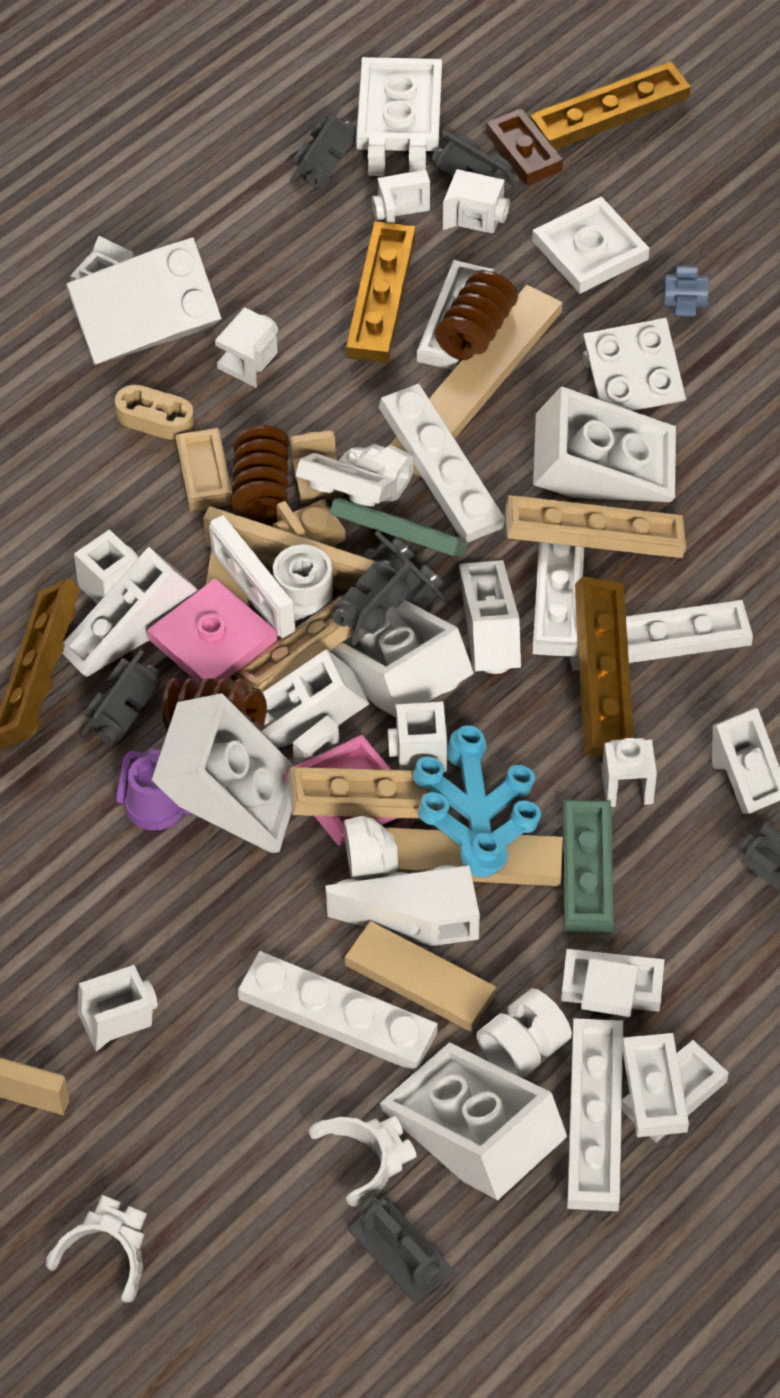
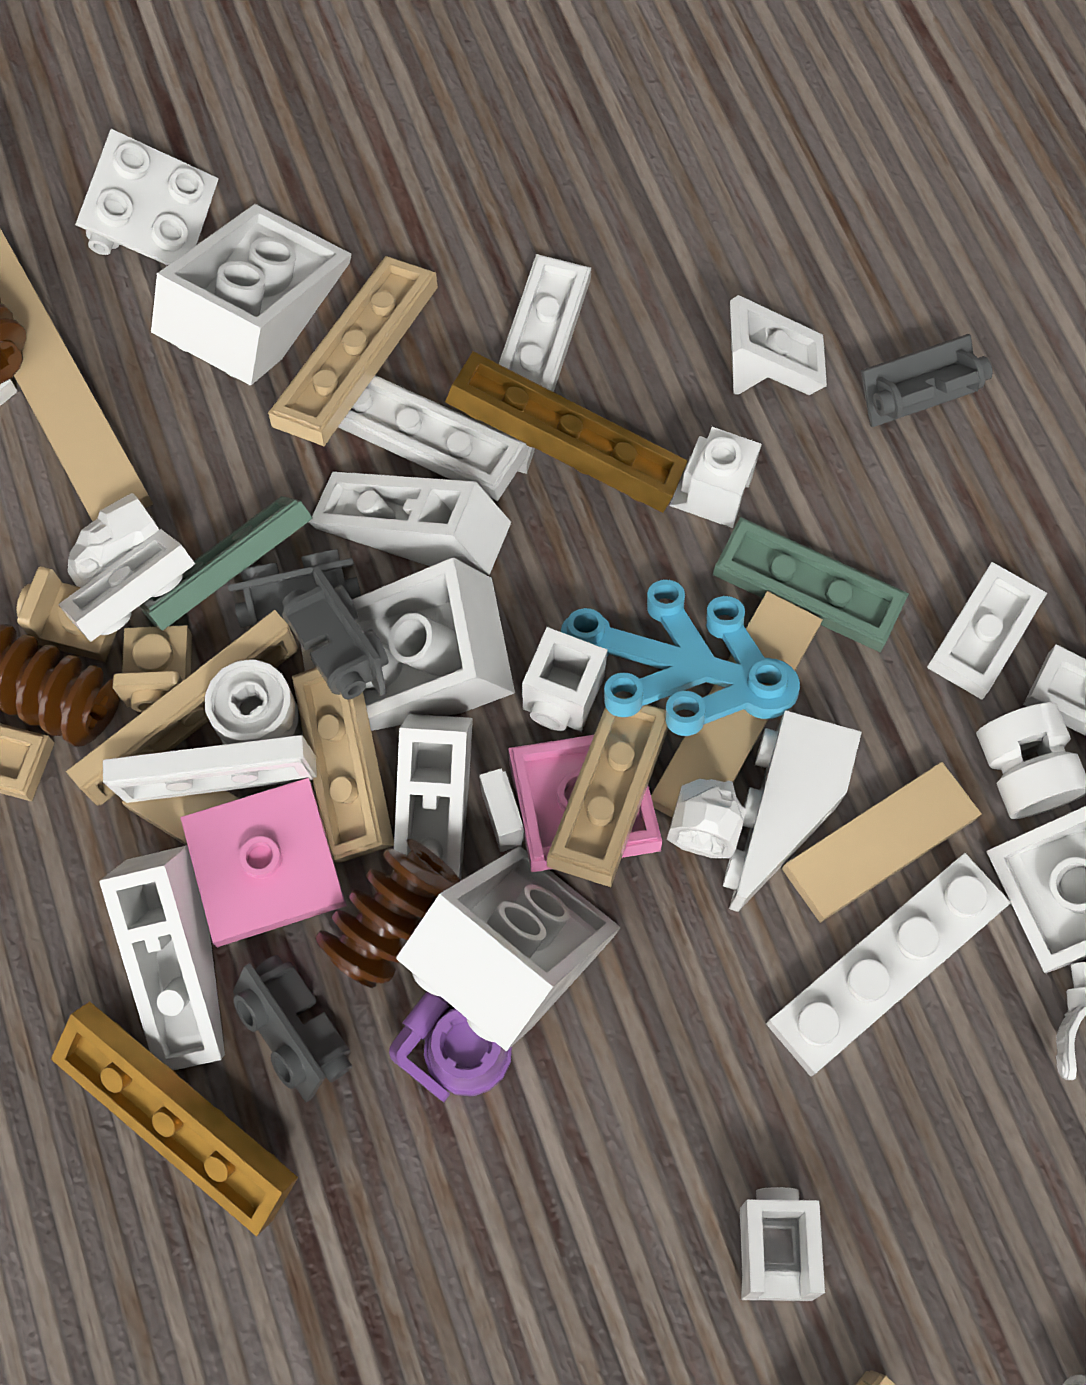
camera: 65 degrees left, 15 degrees up
(102, 564) = (81, 951): white brick -> none
(441, 463) = (154, 468): white plate -> none
(609, 987) = (1016, 636): white tile -> none
(685, 290) = (76, 96): sand blue gear -> none

